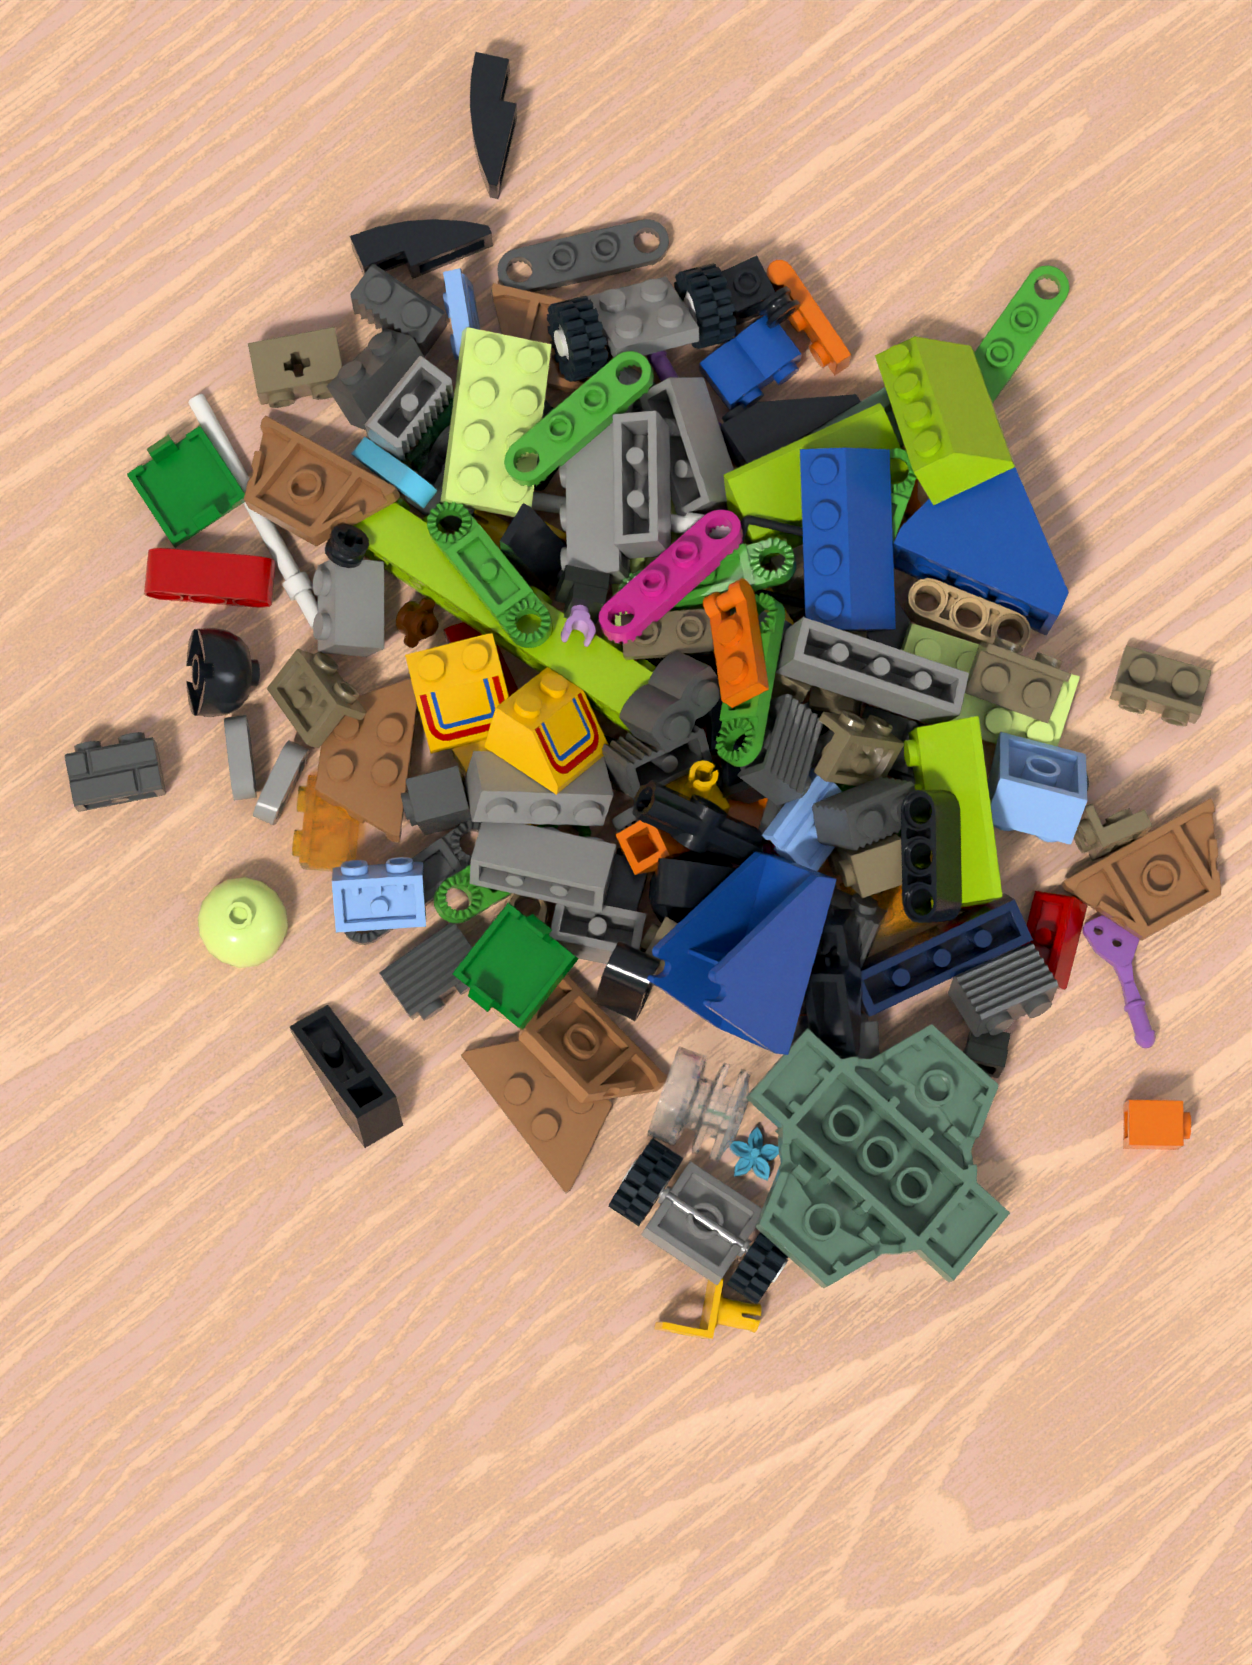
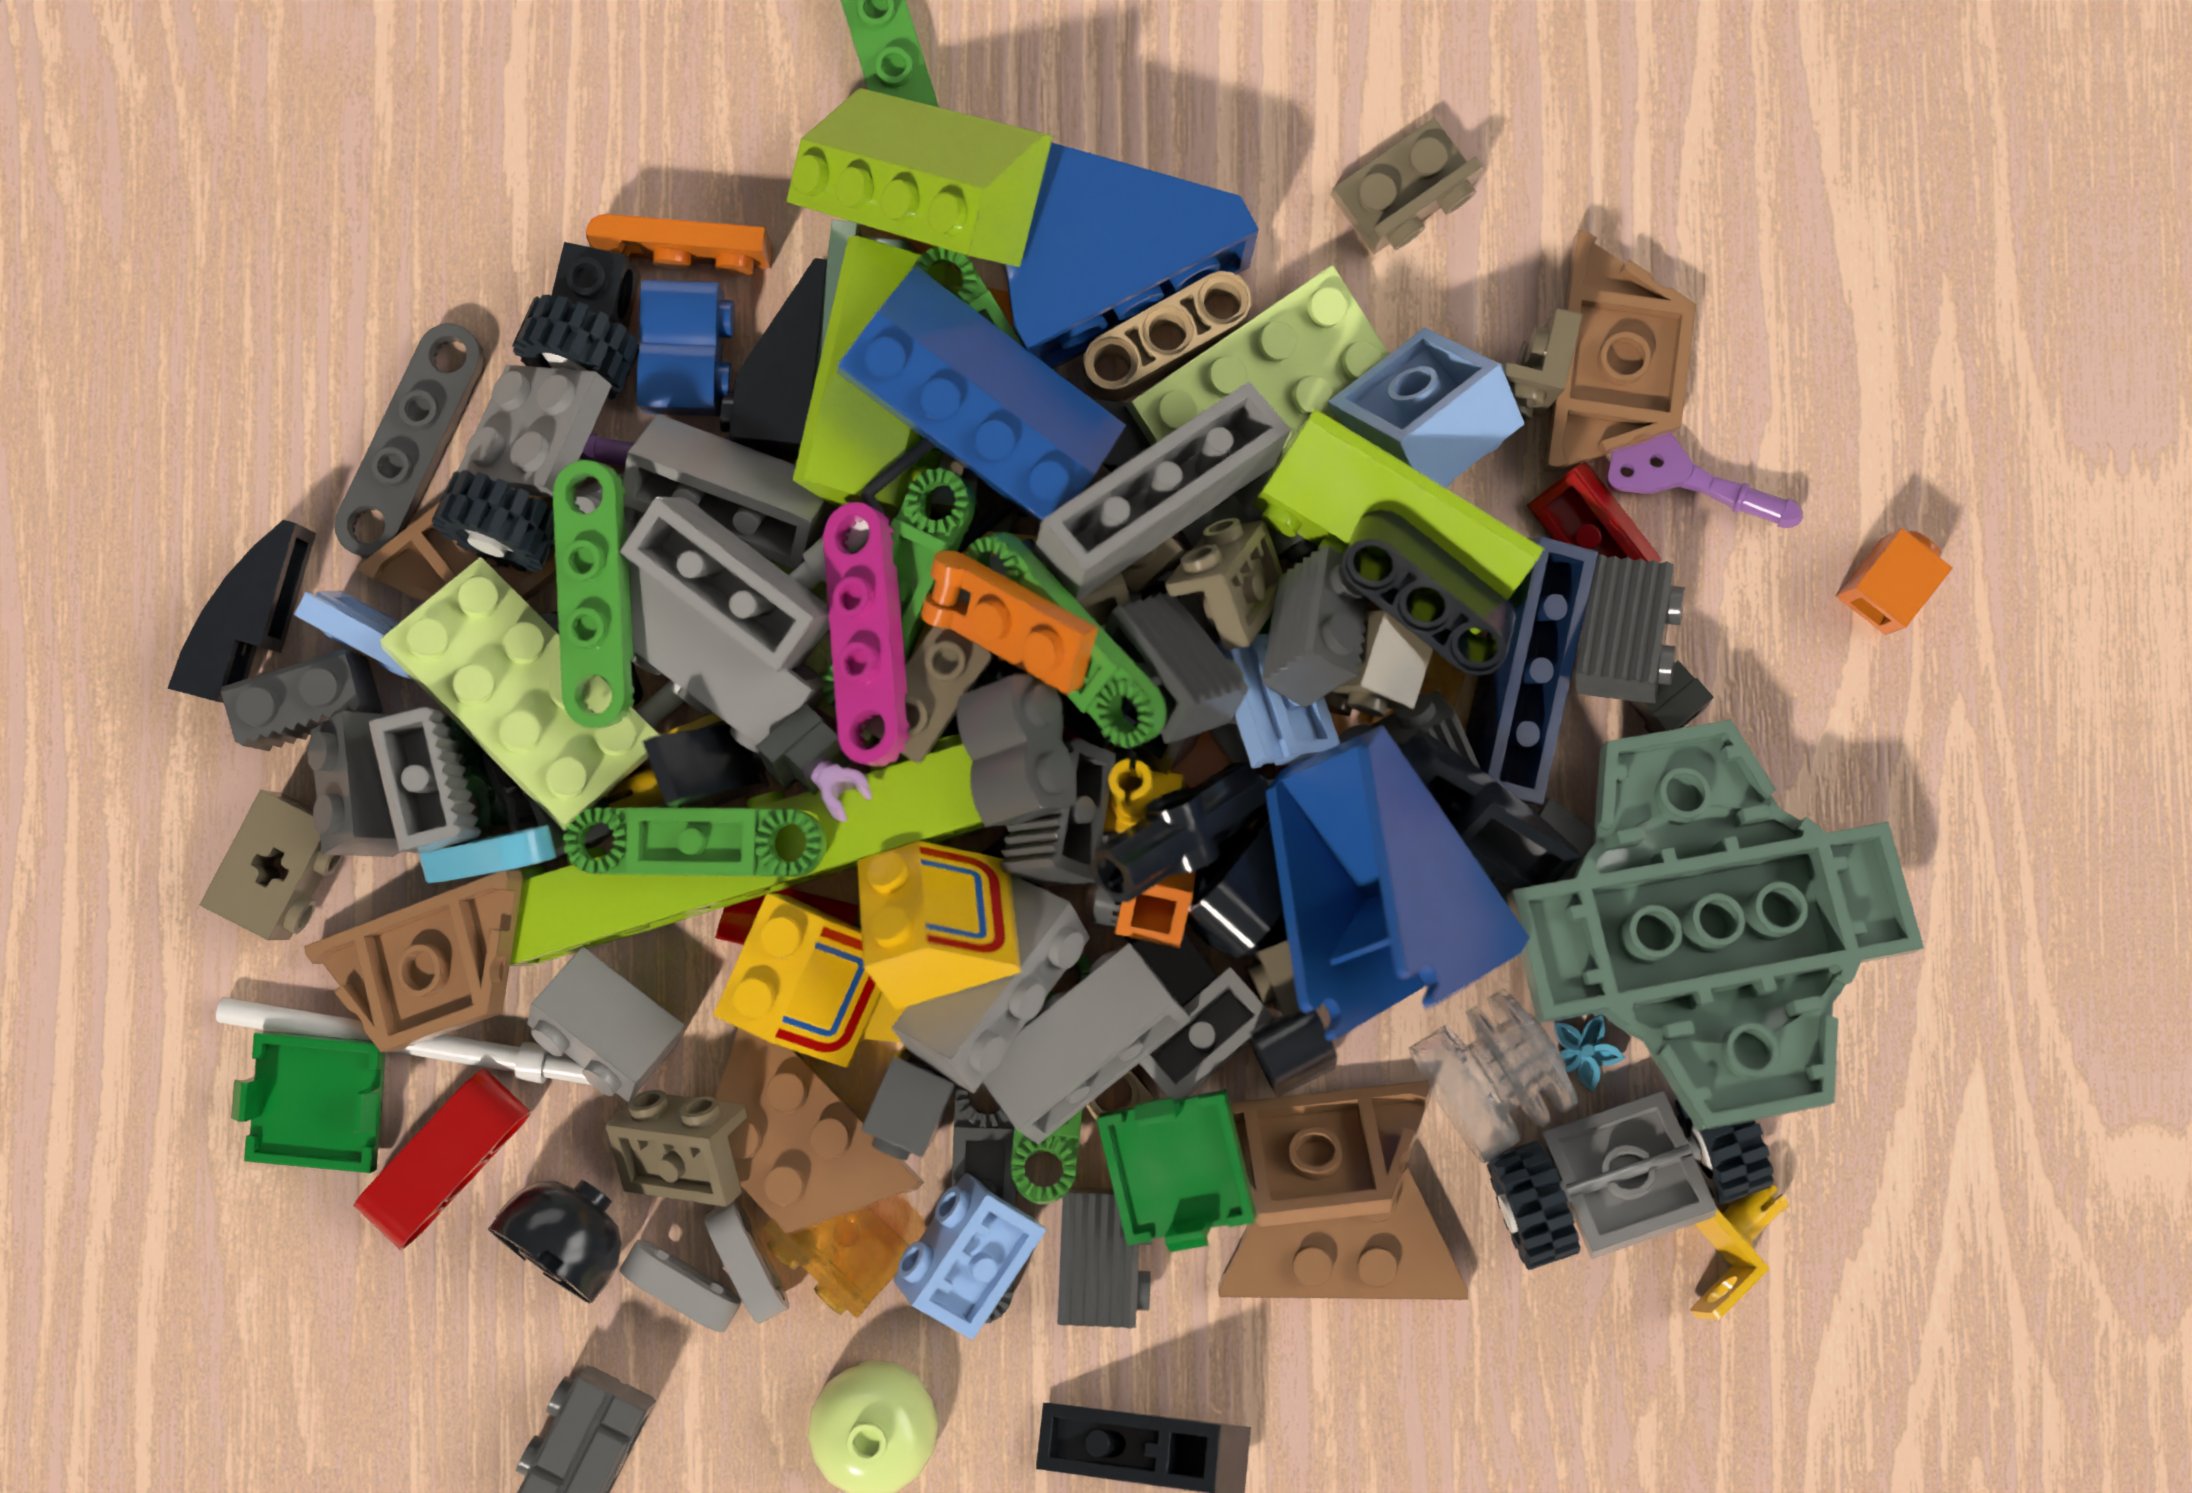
camera: 50 degrees left, 5 degrees up
(346, 546) = (536, 993): black bush -> none
(417, 621) = (681, 959): reddish brown plate -> none
(491, 118) = (162, 416): black slope -> none
(778, 307) = (644, 264): black bush -> none
(1015, 680) = (1290, 337): dark tan bracket -> none

